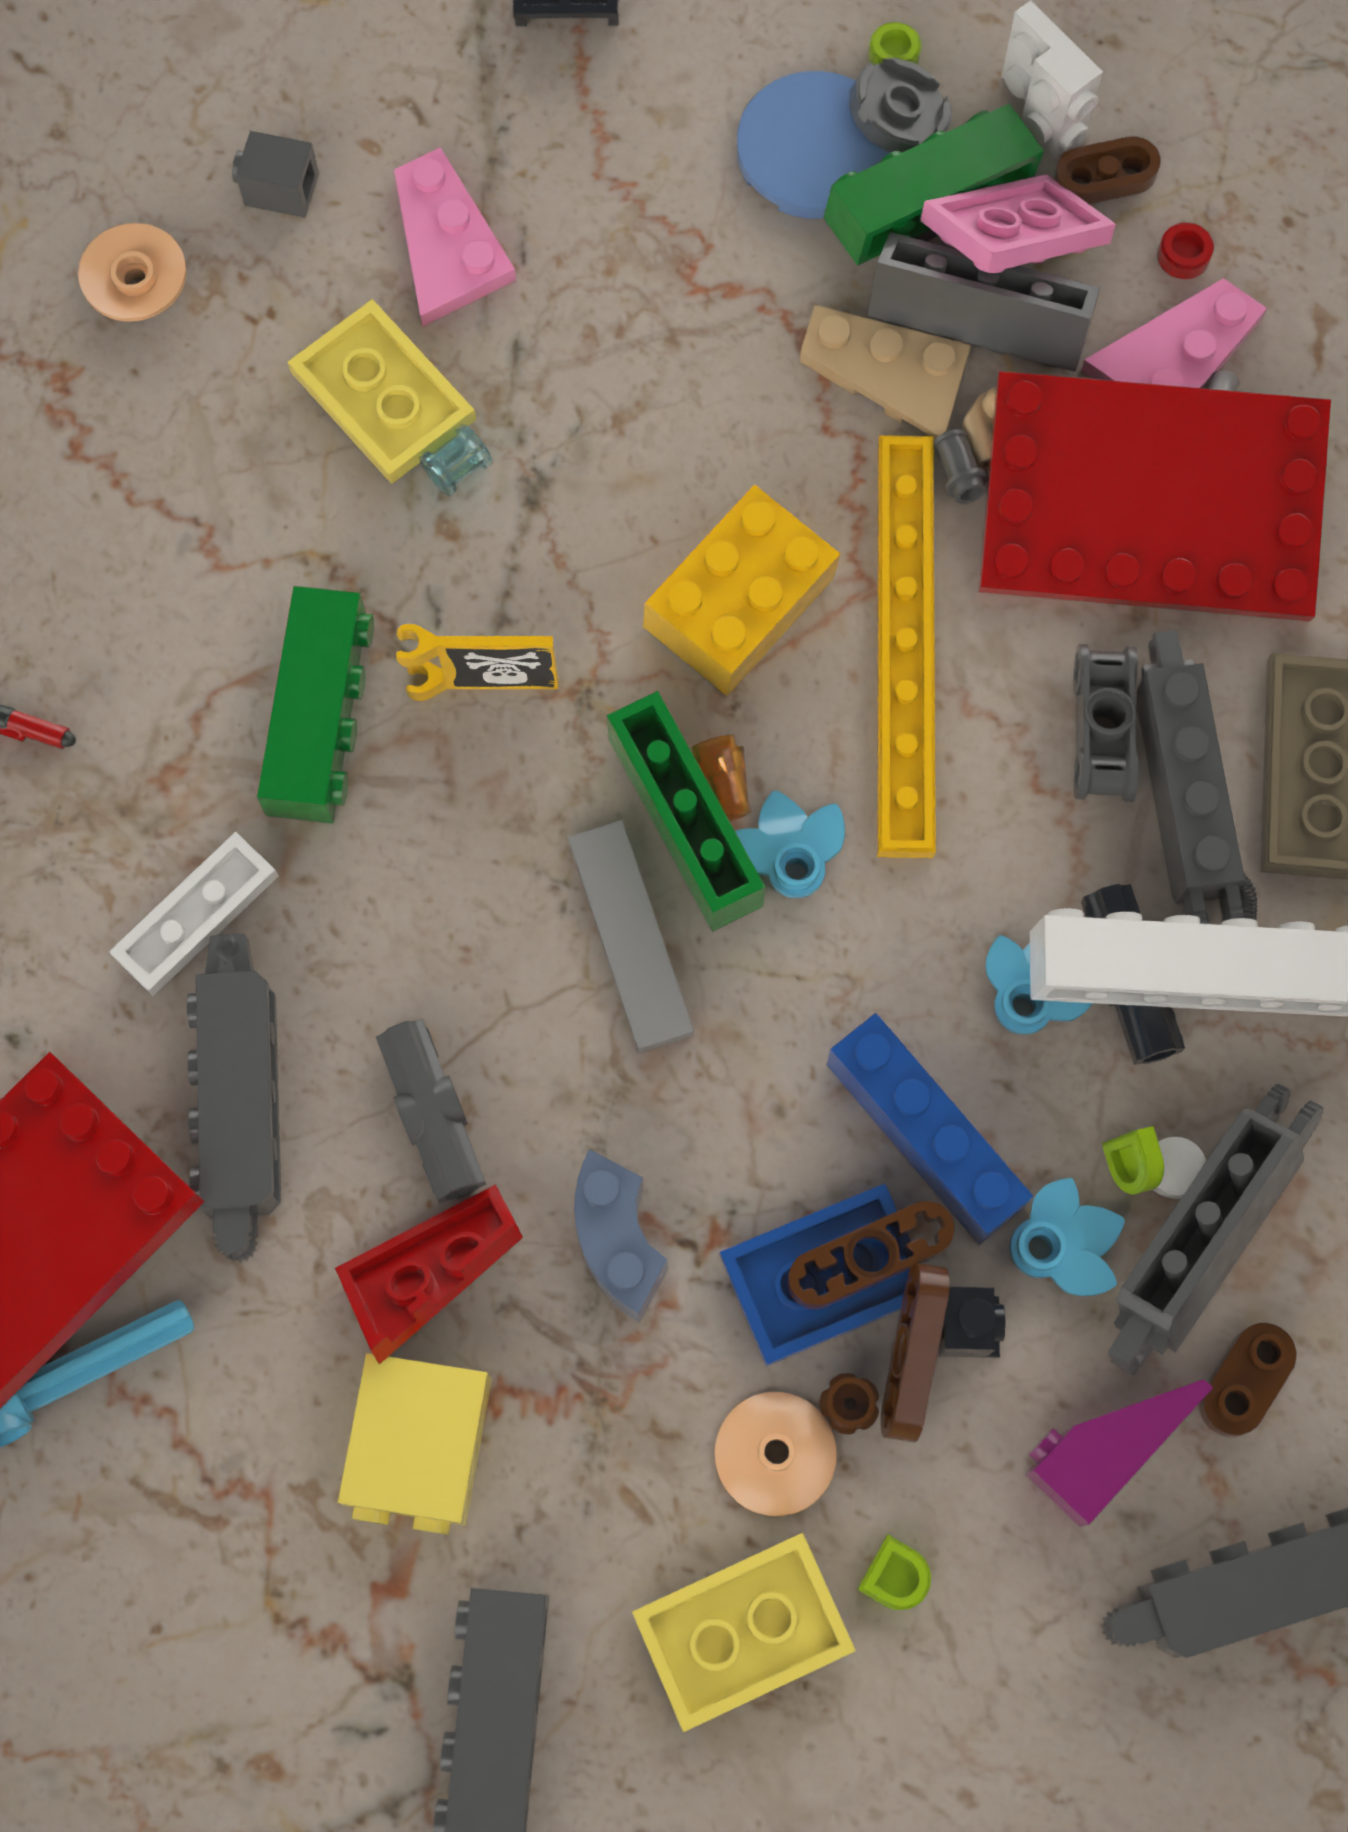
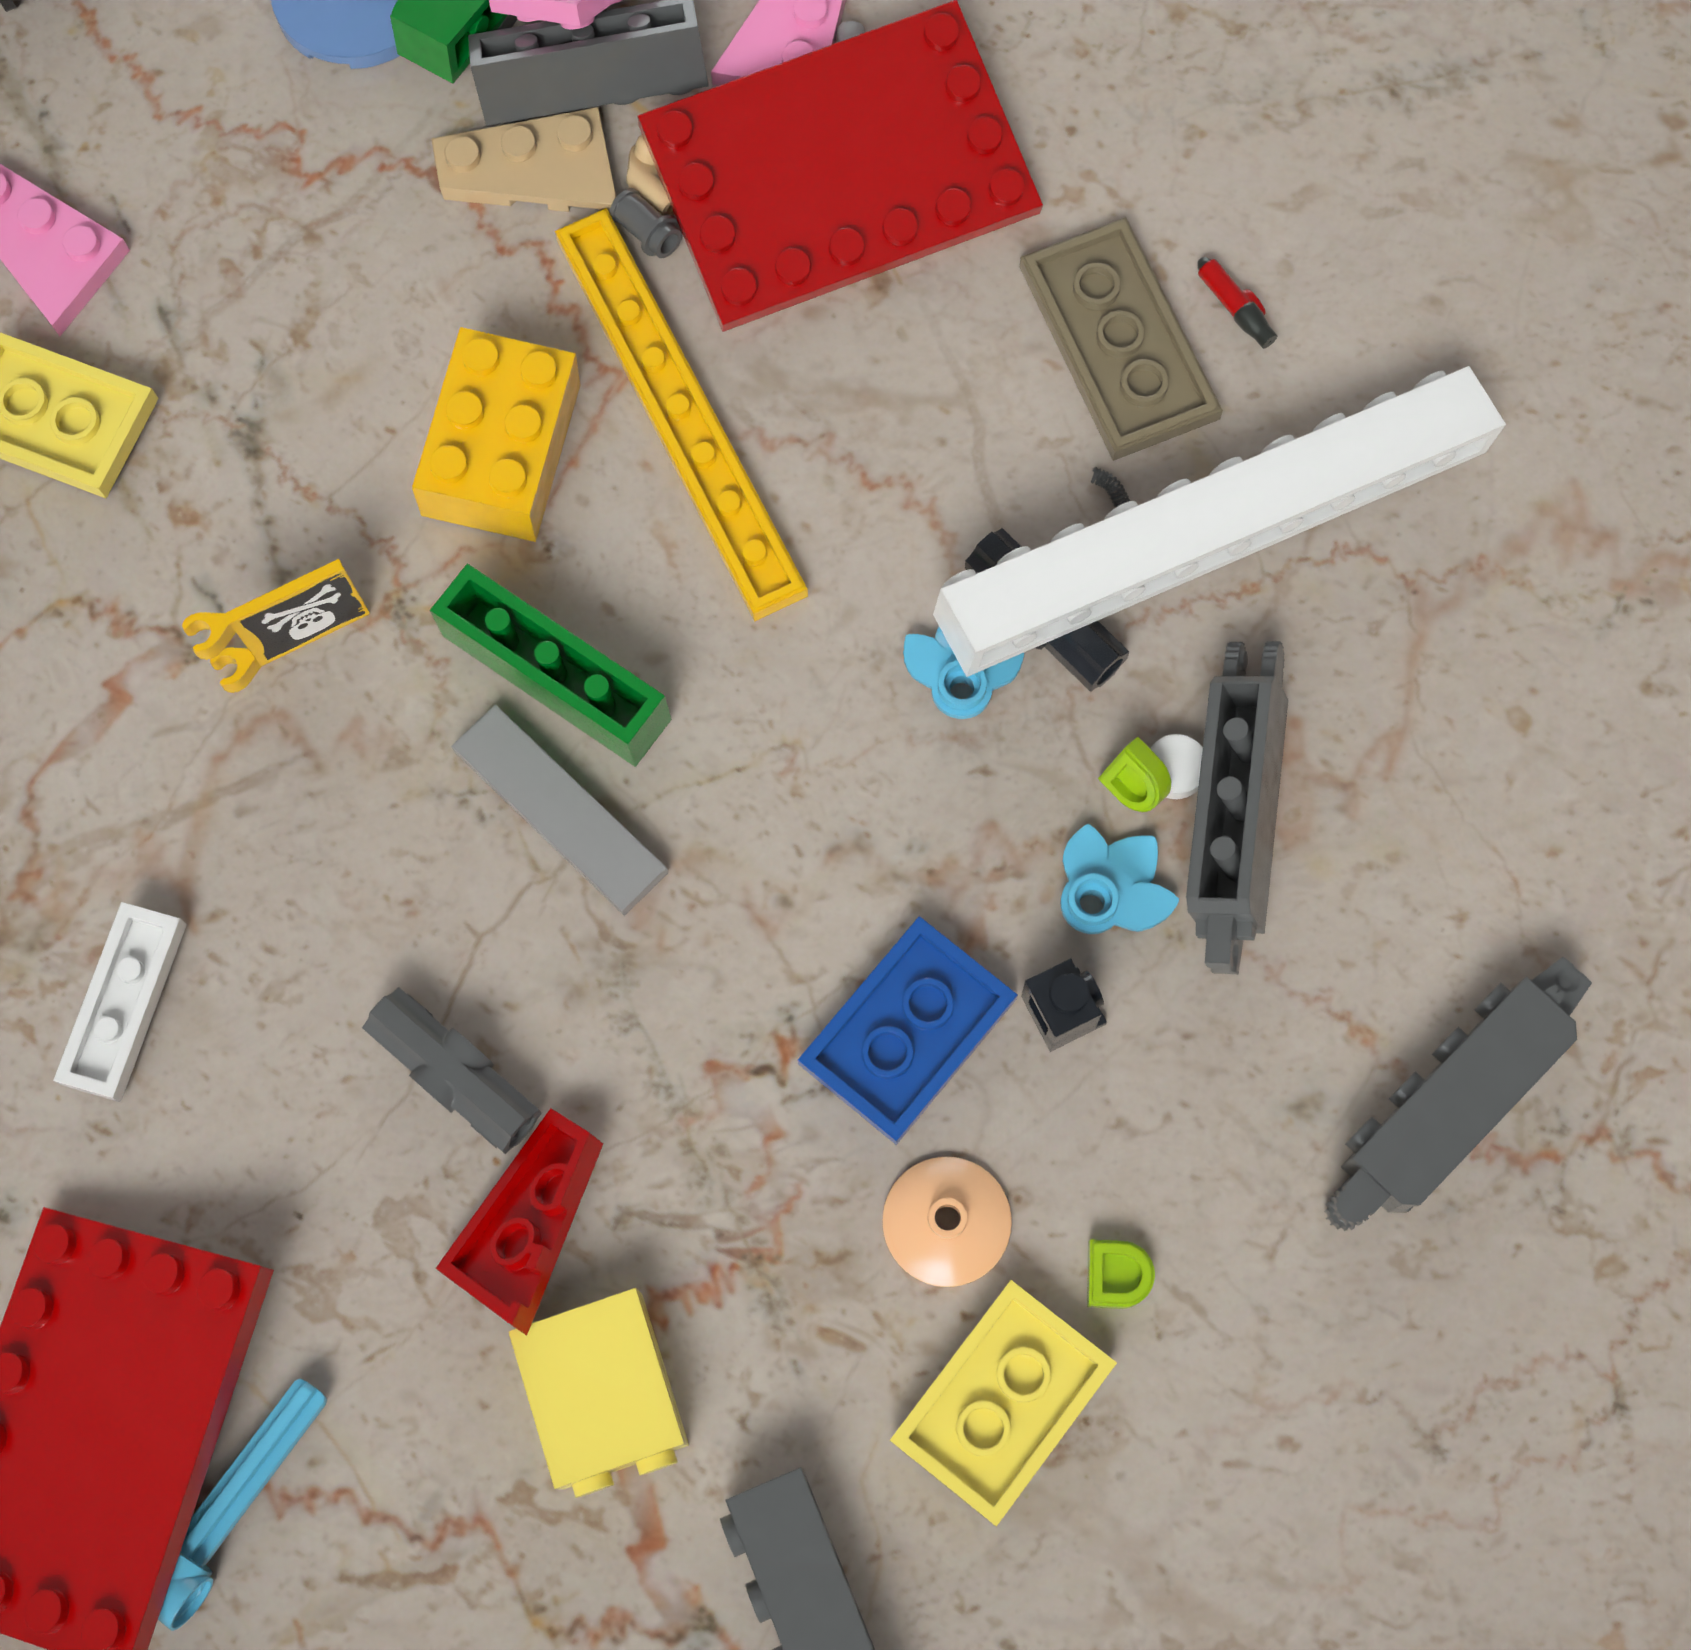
camera: 25 degrees left, 0 degrees up
(236, 1095) = (252, 1153): dark grey hinge -> none
(314, 705) = (137, 743): green brick -> none
(456, 460) = (158, 444): clear light blue bush -> none
(611, 1238) = (688, 1099): sand blue brick -> none
(725, 771) = (570, 607): clear orange cone -> none
(791, 837) = (665, 642): medium azure plate -> none
(865, 1396) = (994, 1120): reddish brown plate -> none
(914, 1352) = (1028, 1057): reddish brown beam -> none
(917, 1250) = (955, 941): reddish brown beam -> none
(928, 1128) = (932, 845): blue brick -> none
(1101, 1455) = (1245, 1066): magenta slope -> none
(1105, 757) = (917, 423): dark grey piece -> none
(1188, 781) = (1006, 407): dark grey hinge -> none
(1249, 1378) = (1341, 922): reddish brown plate -> none

